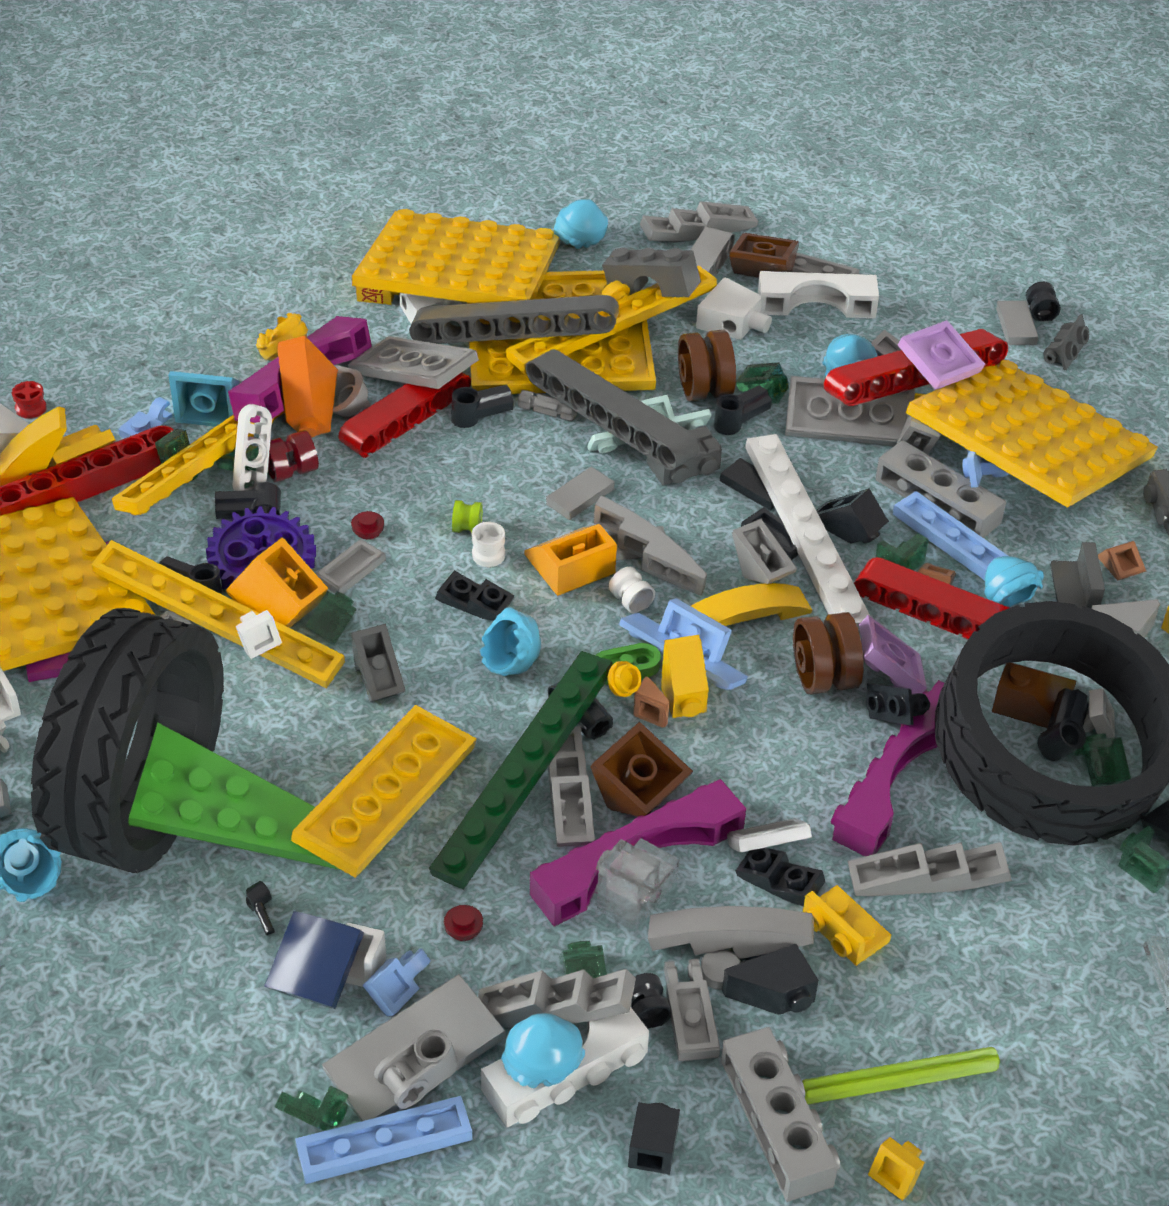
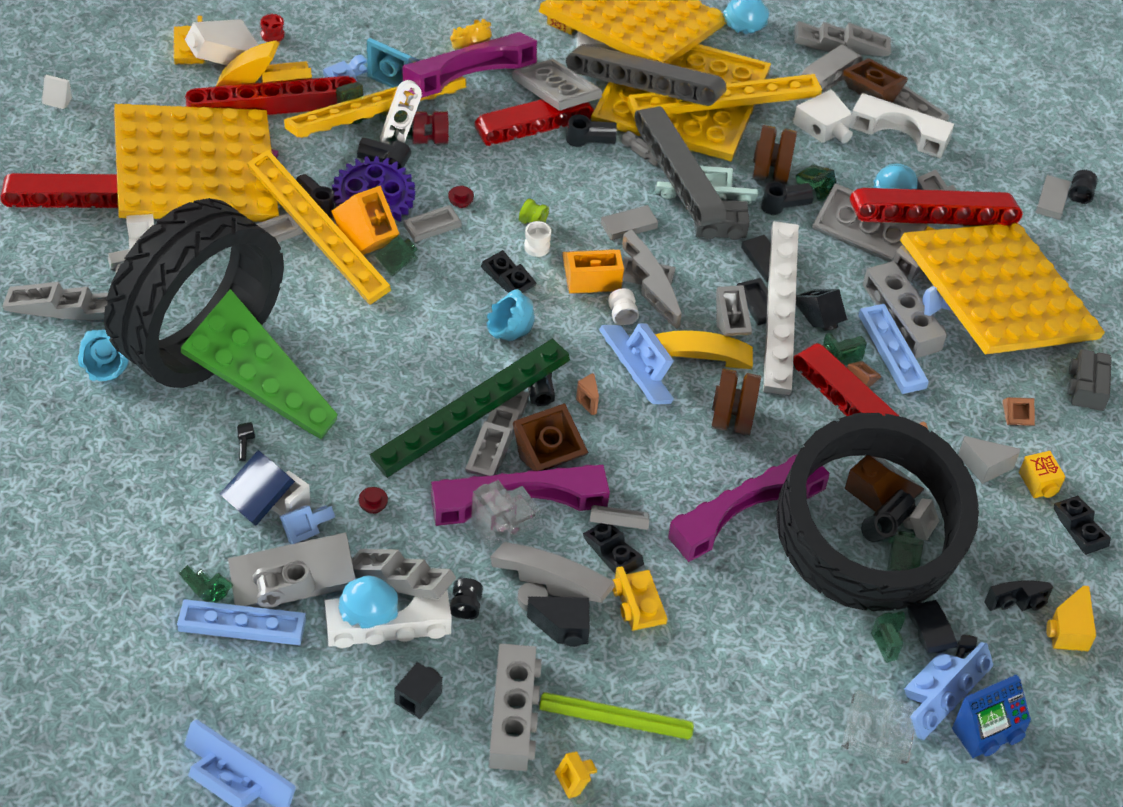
camera: 20 degrees right, 5 degrees up
(258, 633) = (334, 249): white tile -> none
(307, 385) = (465, 79): orange slope -> none
(350, 392) = (490, 89): light grey piece -> none
(377, 662) = (409, 298): dark grey slope -> none
(383, 791) = (364, 389): yellow plate -> none
(583, 957) = (438, 554): clear green bracket -> none
(616, 290) = (736, 75): yellow plate -> none
(624, 679) = (572, 369): yellow plate -> none
(635, 655) = (590, 358): bright green plate -> none
(672, 269) = (757, 62): dark grey arch -> none
(684, 676) = (621, 383): yellow slope -> none
(691, 1014) = (493, 618): light grey hinge -> none
(892, 656) = (784, 421): lavender plate -> none
(895, 703) = (765, 456): black hinge -> none
(931, 871) = (723, 585): light grey slope -> none
(941, 354) = (952, 203): lavender plate -> none
(1011, 580) = (912, 397): medium azure hair -> none
(1067, 343) = (1084, 227): dark grey hinge -> none
(1079, 580) = (971, 414): dark grey panel -> none

